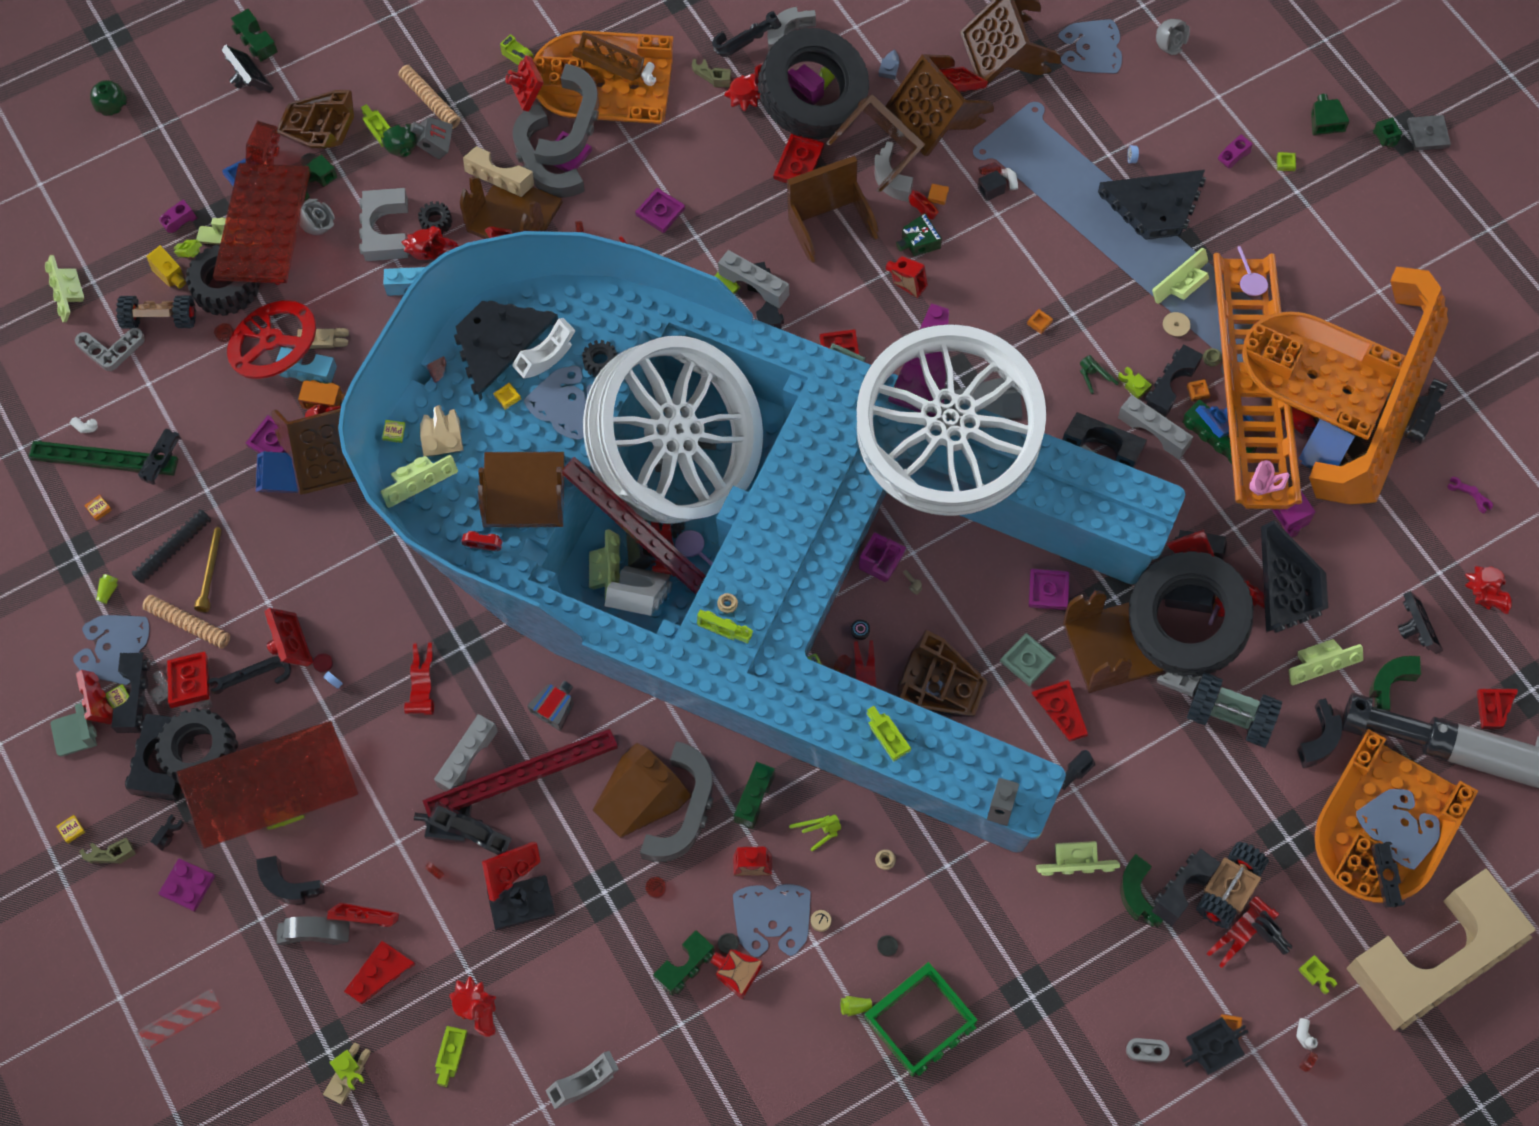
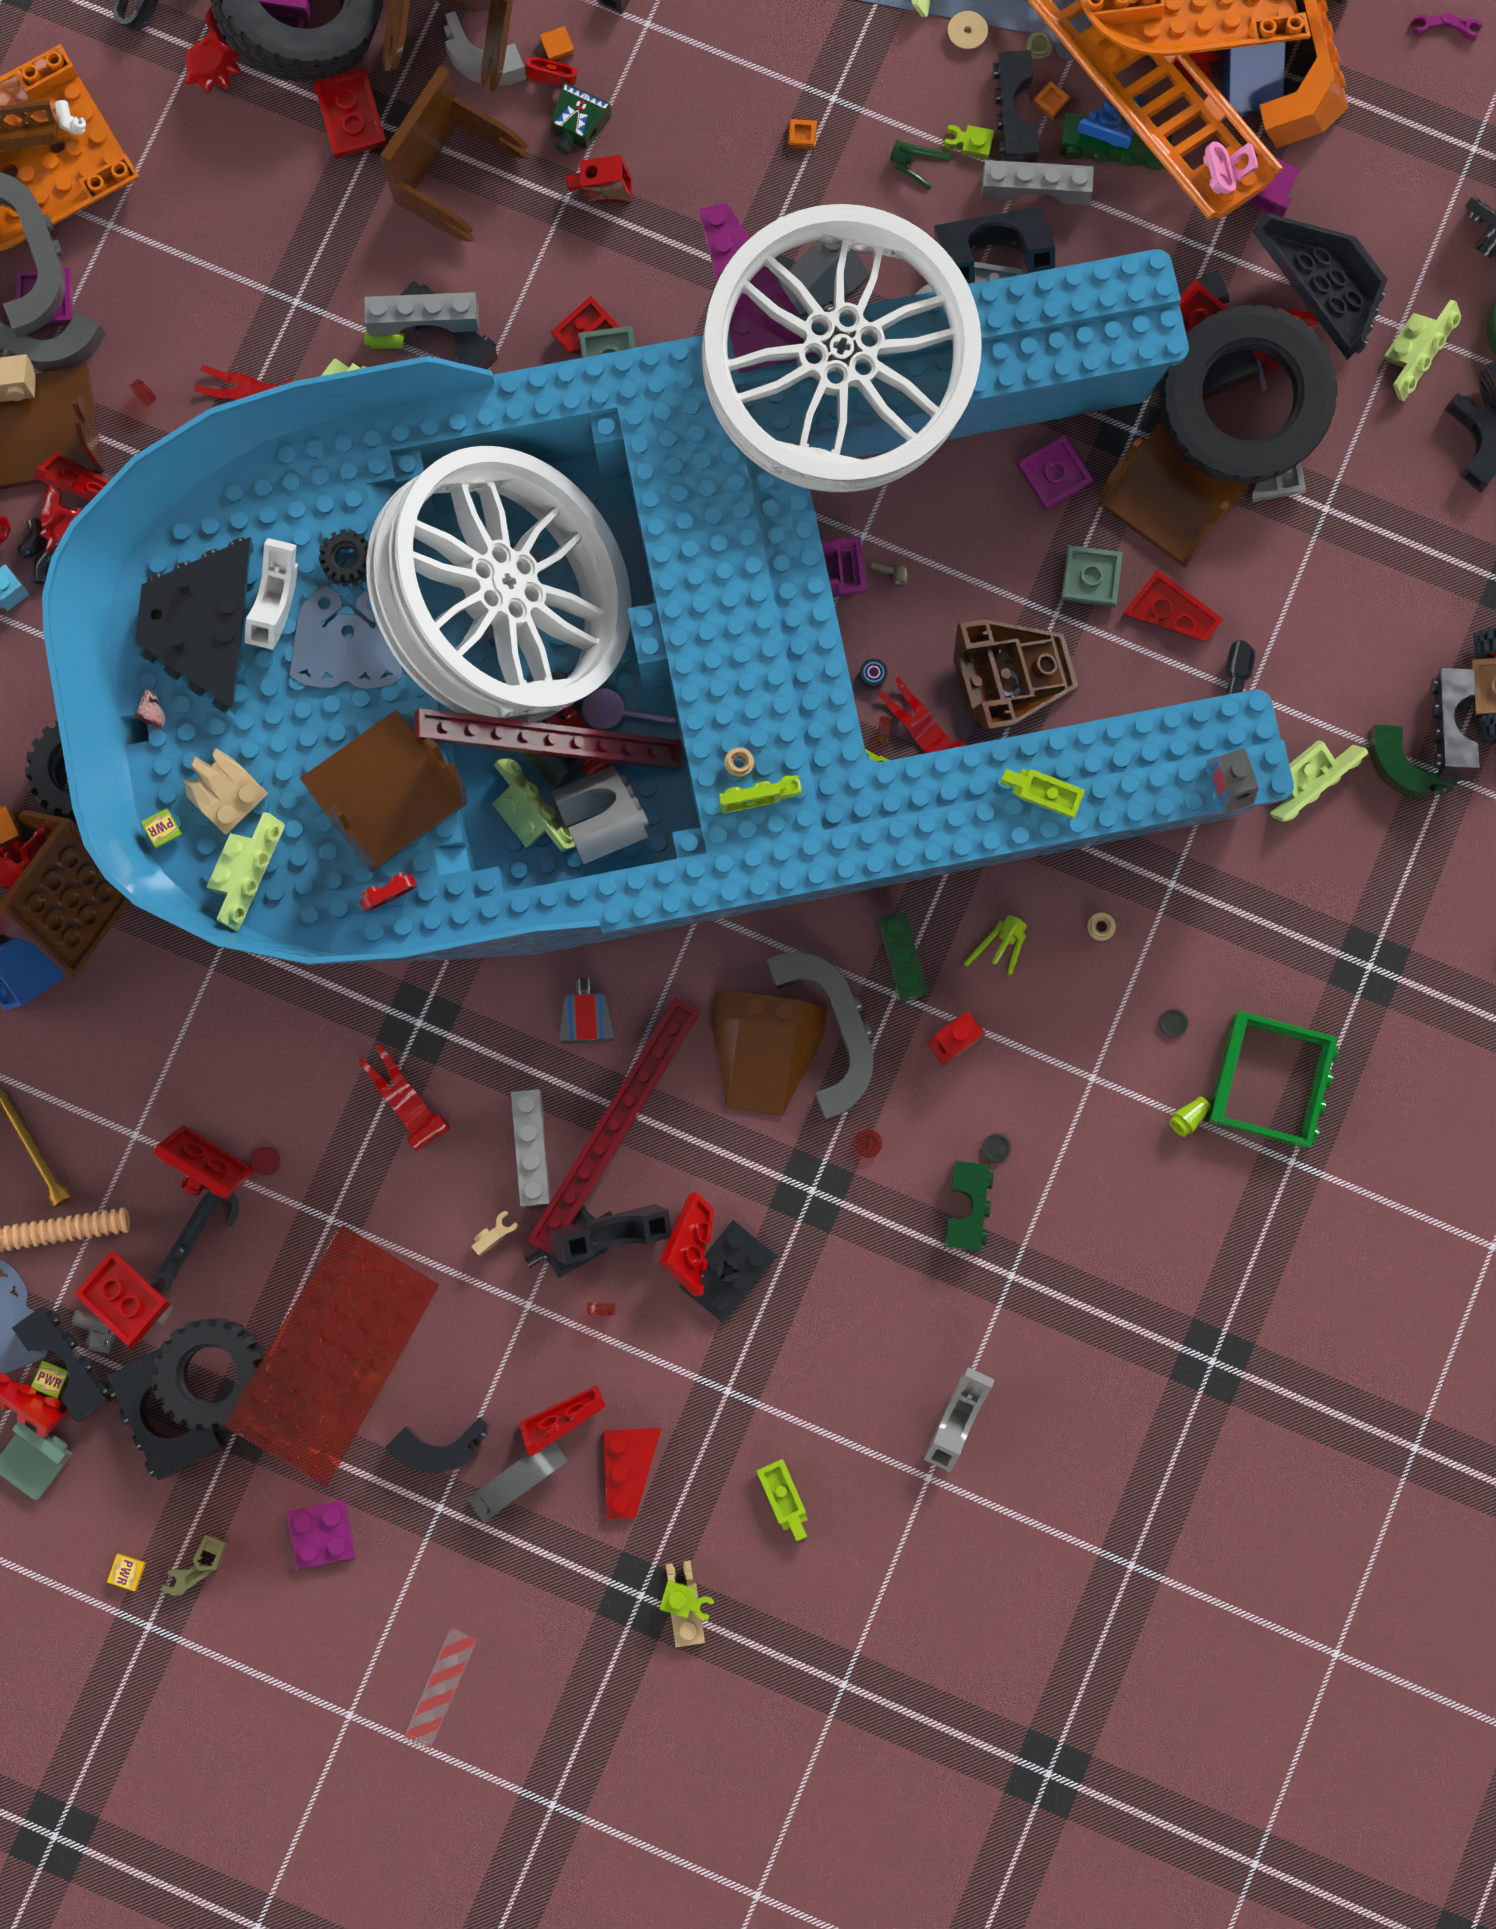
camera: 40 degrees left, 15 degrees up
(164, 834) = (249, 1501): black plate -> none
(333, 680) = (297, 1173): light blue tile -> none
(406, 788) = (487, 1239): none -> tan plate
(475, 1004) = (771, 1427): red head -> none
(507, 396) = (266, 685): yellow tile -> none
(660, 210) = (225, 297): magenta plate -> none
(723, 76) = (144, 67): olive piece -> none
(736, 971) = (1032, 1173): torso -> none
(769, 906) = (1011, 1071): sand blue piece -> none
(820, 920) = (1081, 1048): tan tile -> none
(1235, 709) = (1402, 467): black plate -> none

